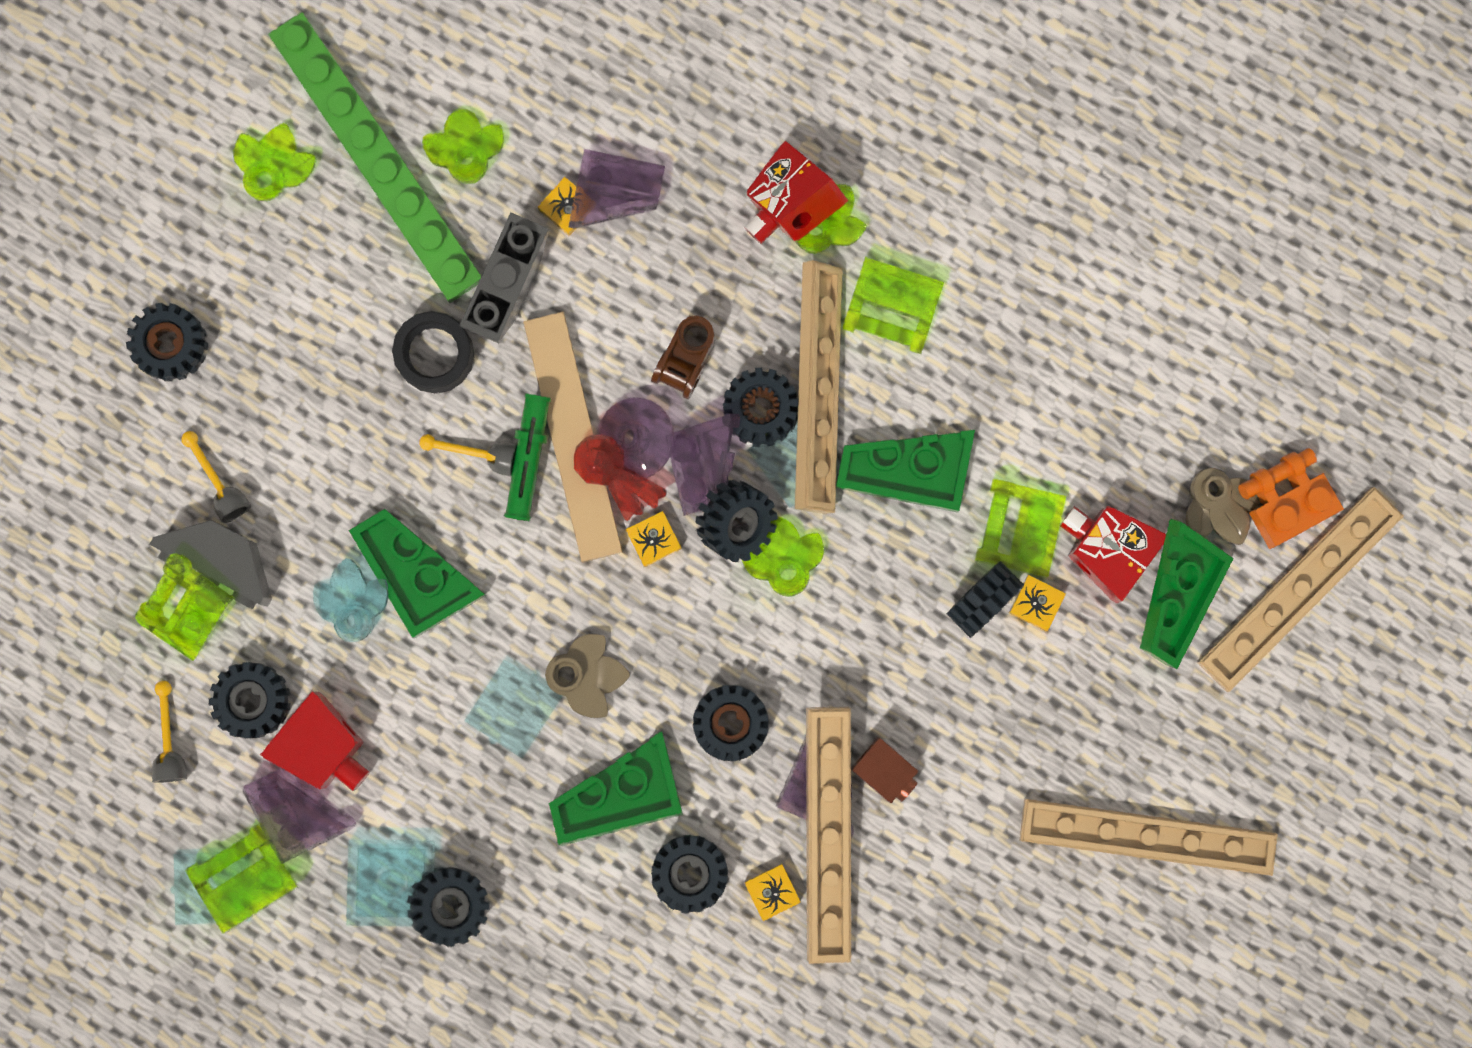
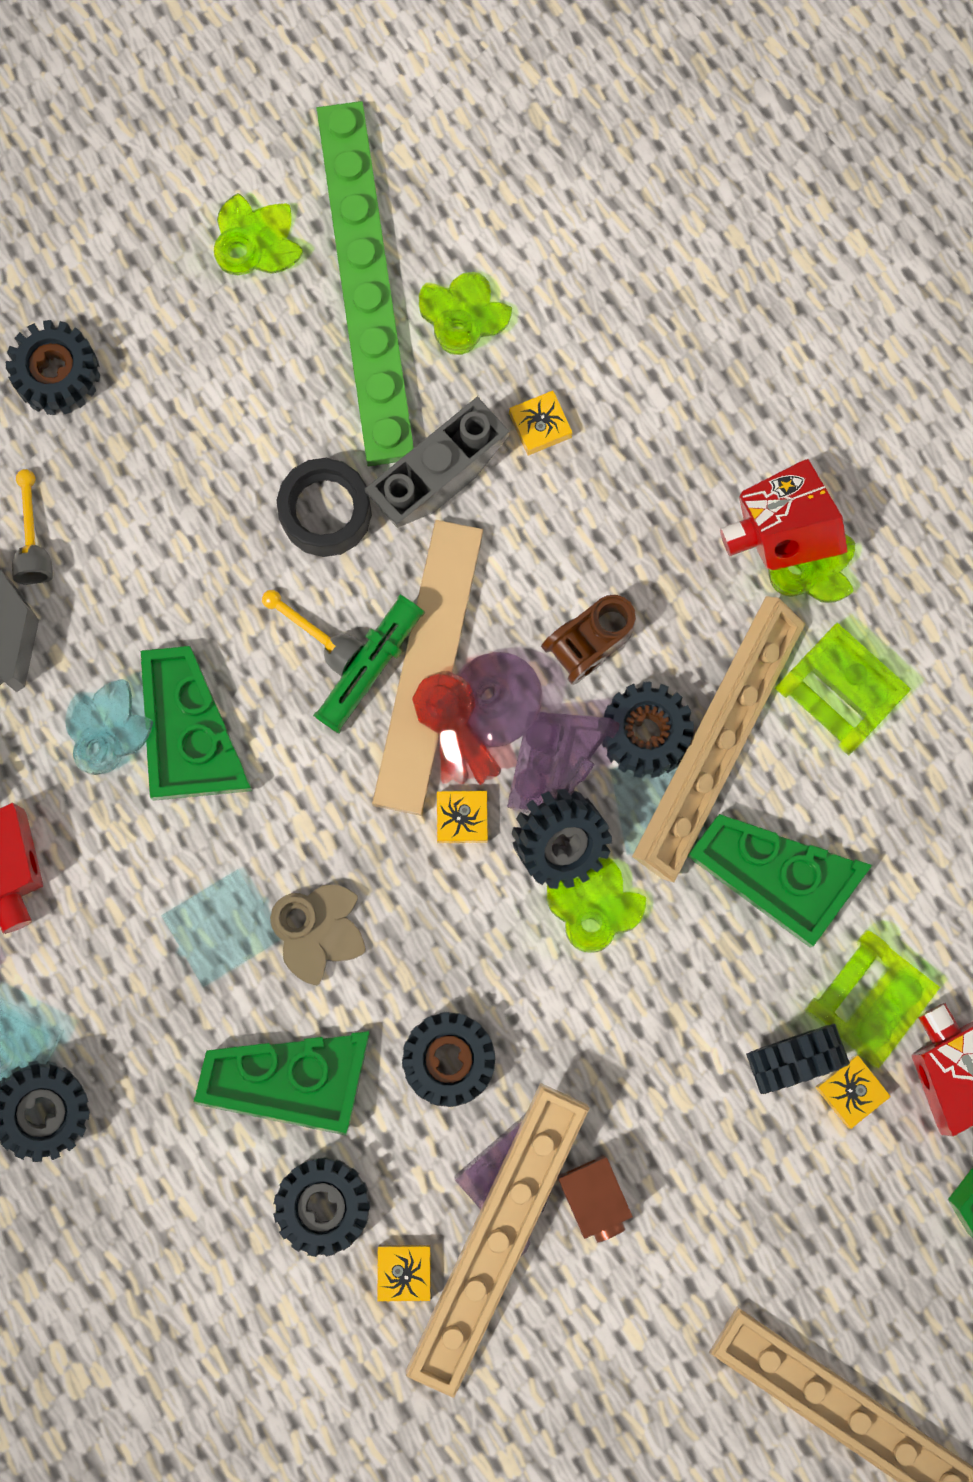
camera: 25 degrees right, 5 degrees down
(614, 188) = (599, 425): clear purple wing -> none

